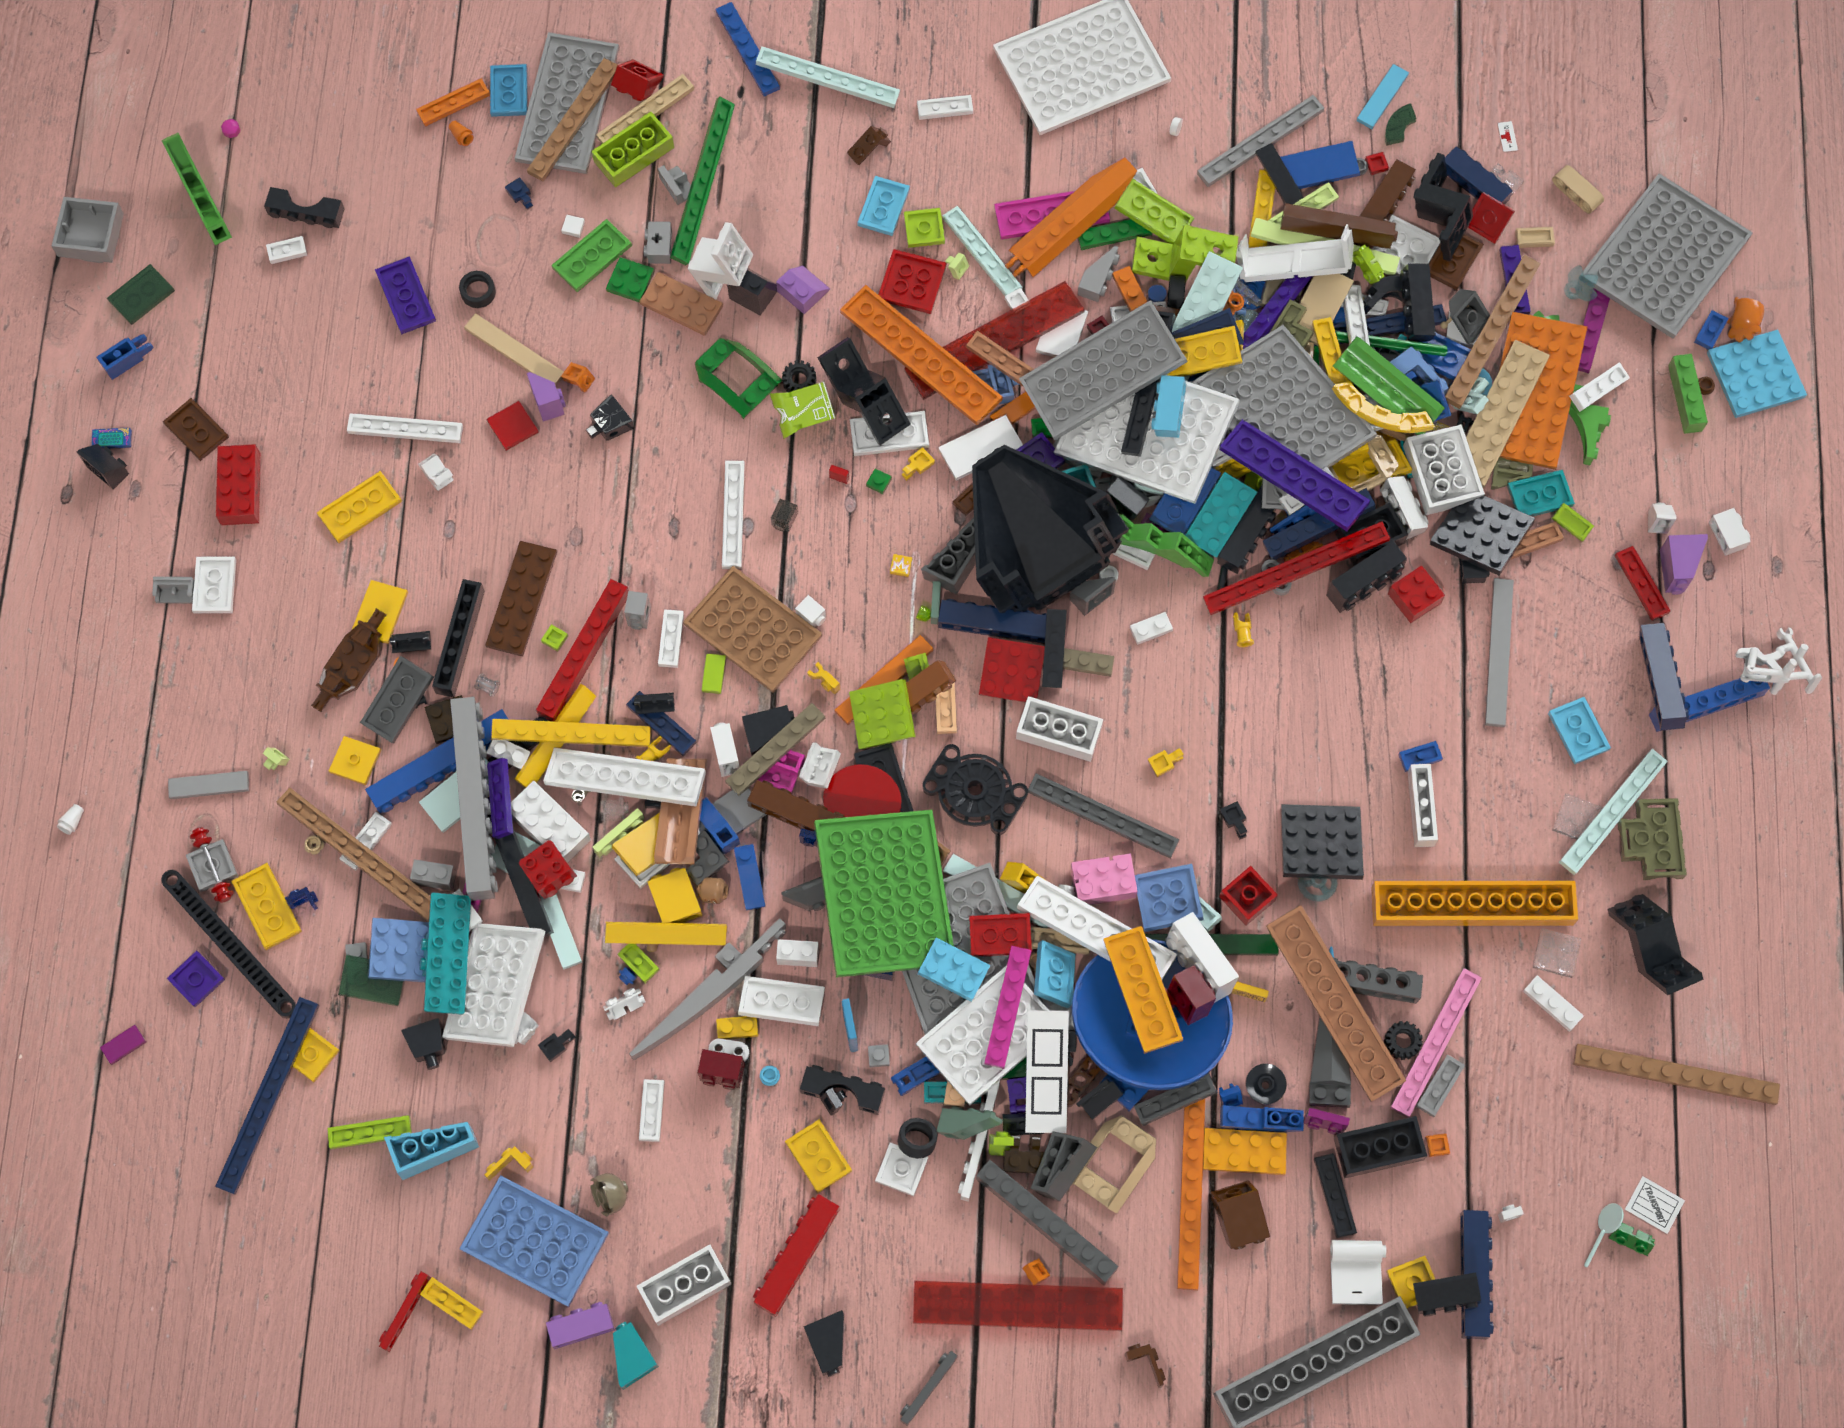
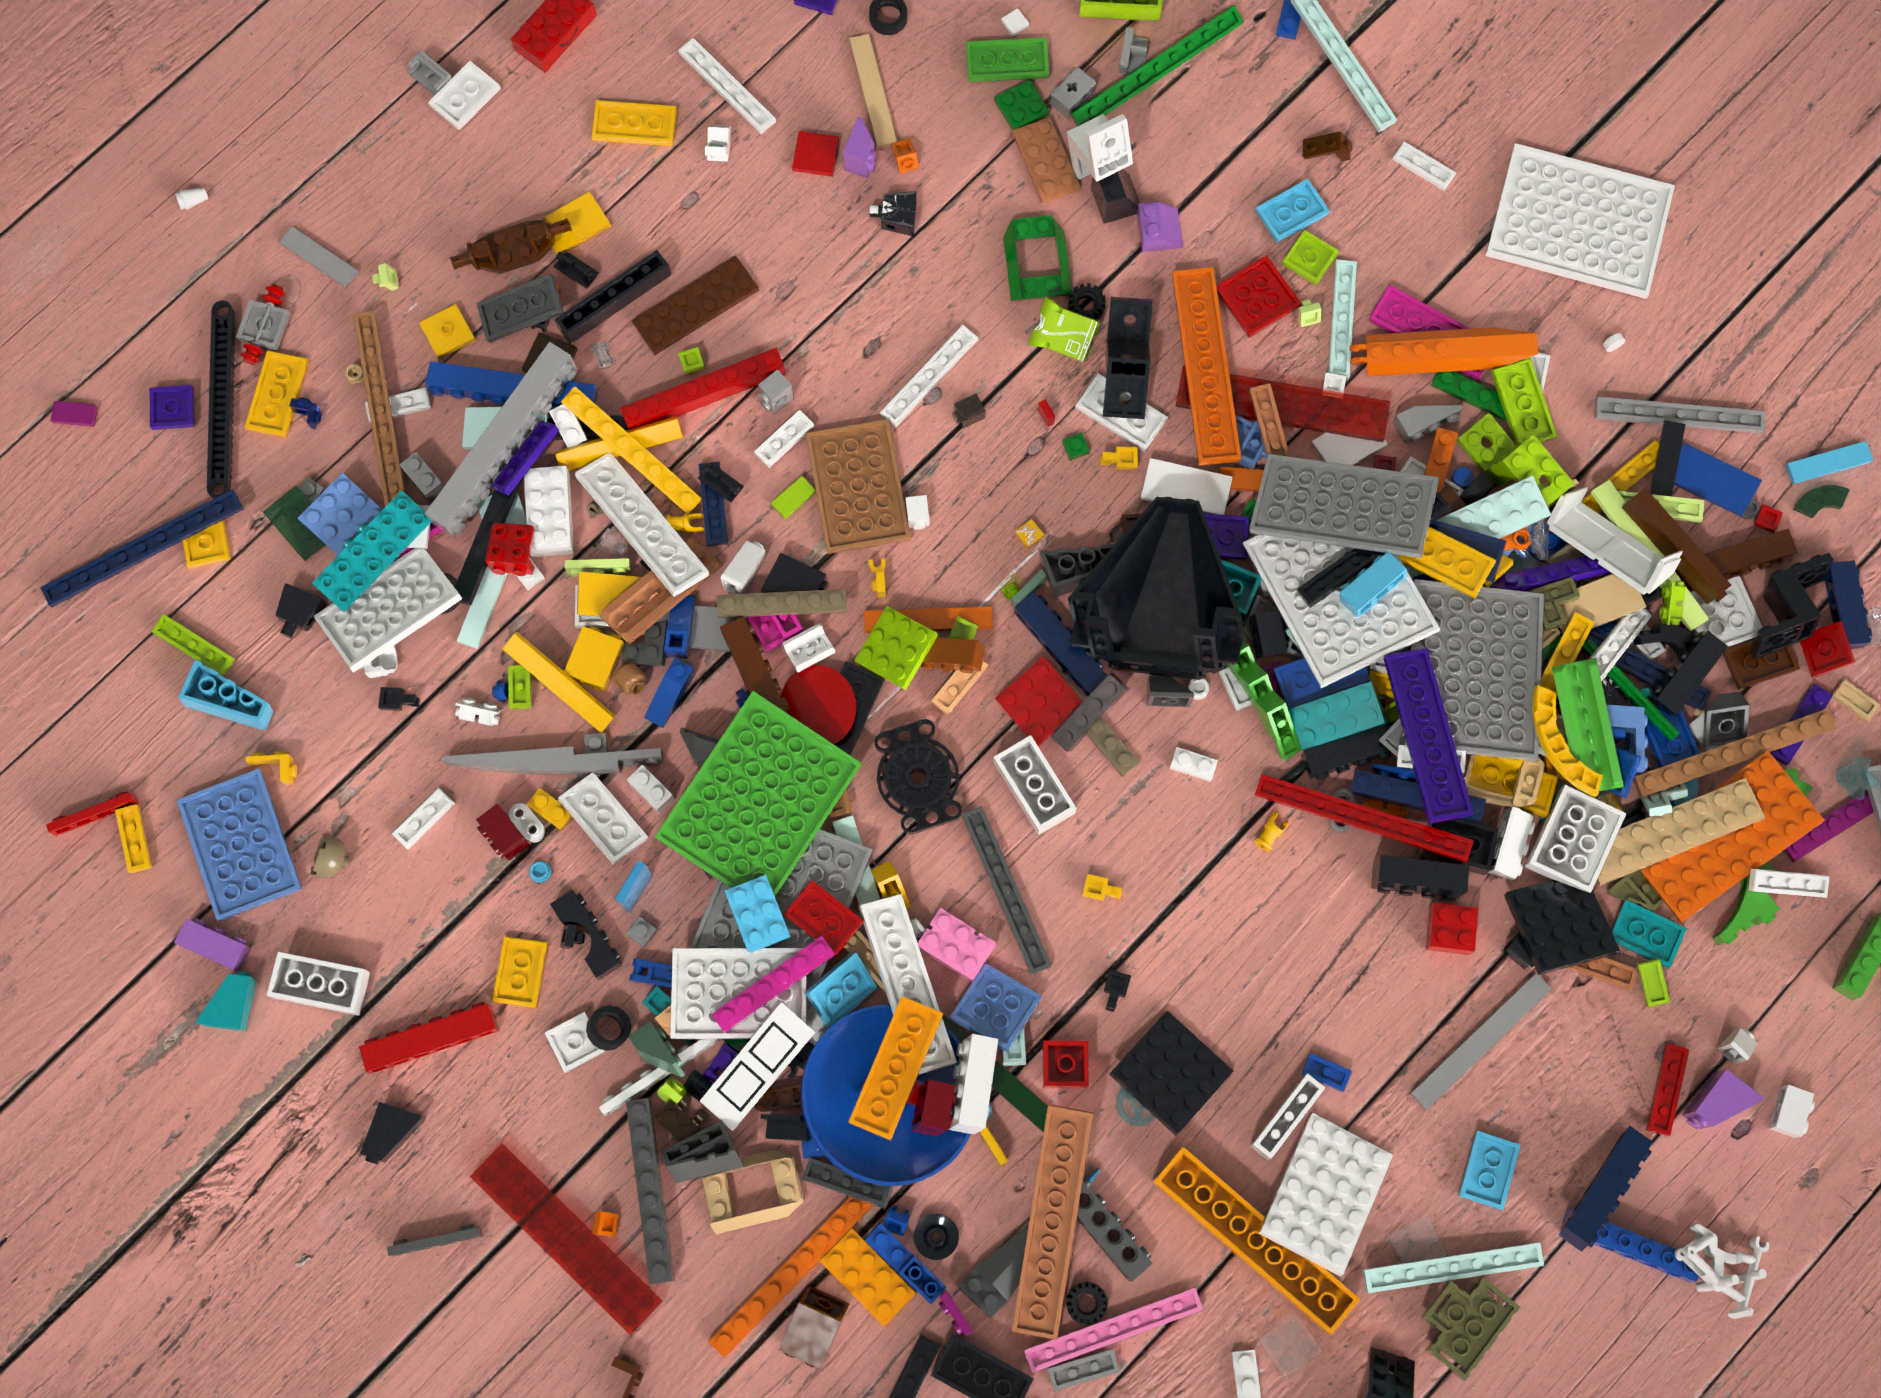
camera: 40 degrees right, 5 degrees up
(1492, 833) = (1326, 1194): none -> white plate

